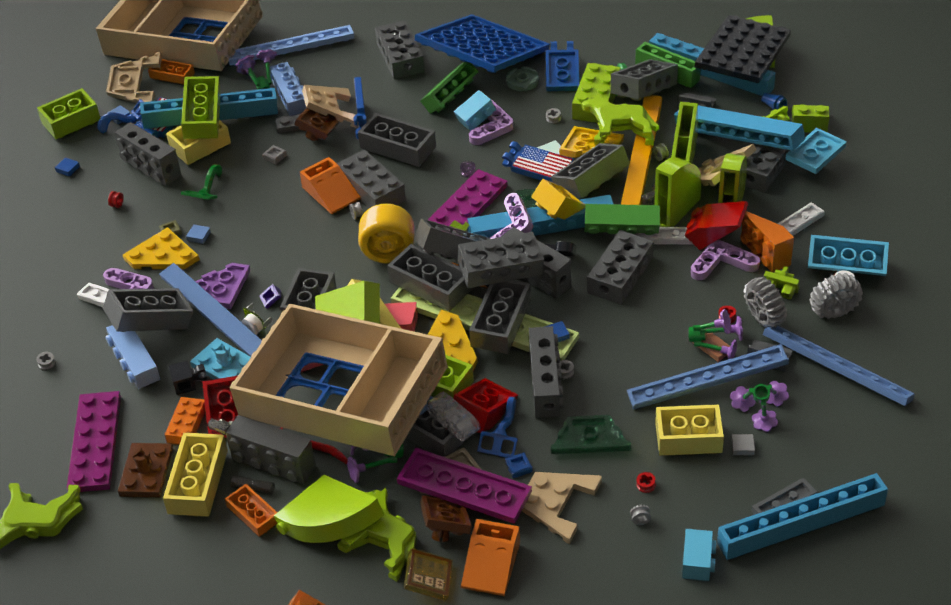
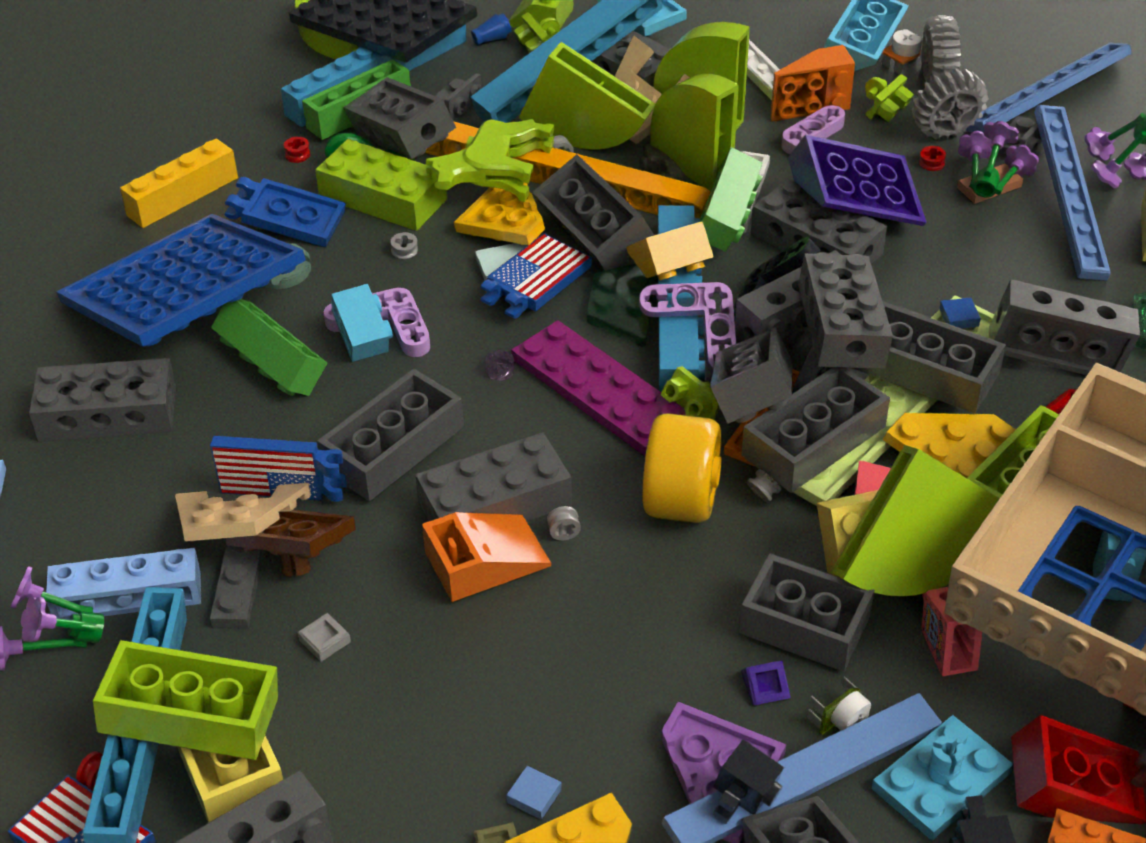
camera: 80 degrees left, 0 degrees up
(191, 282) = (747, 781): none -> black brick
(215, 170) = (344, 735): green piece -> none
(570, 26) = (179, 182): none -> yellow brick
(622, 57) = (297, 149): none -> red bush
(654, 269) = (856, 179): none -> dark purple slope
(714, 222) = (771, 111): red slope -> none

